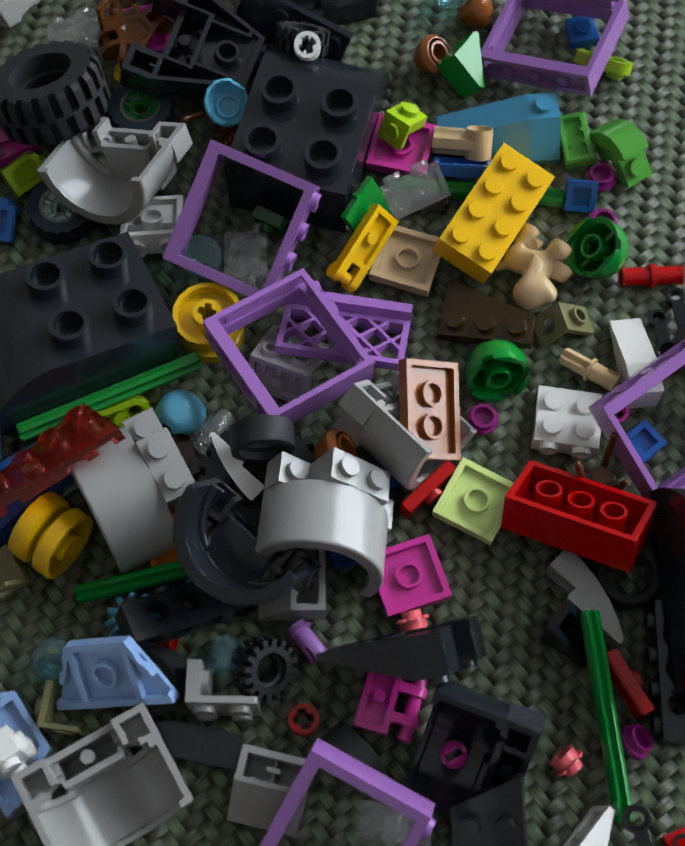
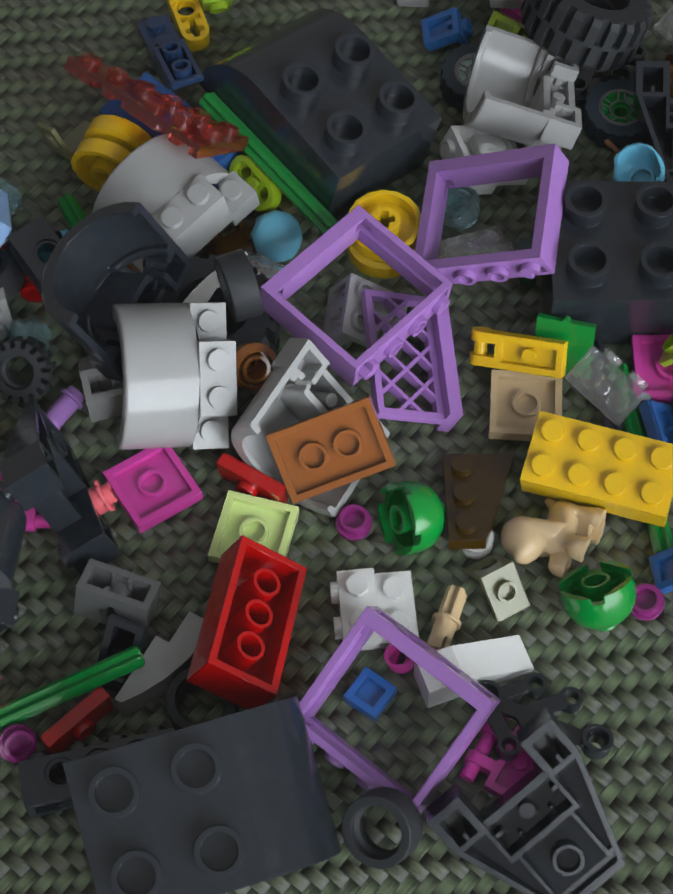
camera: 75 degrees right, 5 degrees down
(520, 625) = (115, 591): none -> dark grey brick
(602, 473) = (310, 653): reddish brown plant -> none
(651, 276) = (591, 668): red pin -> none

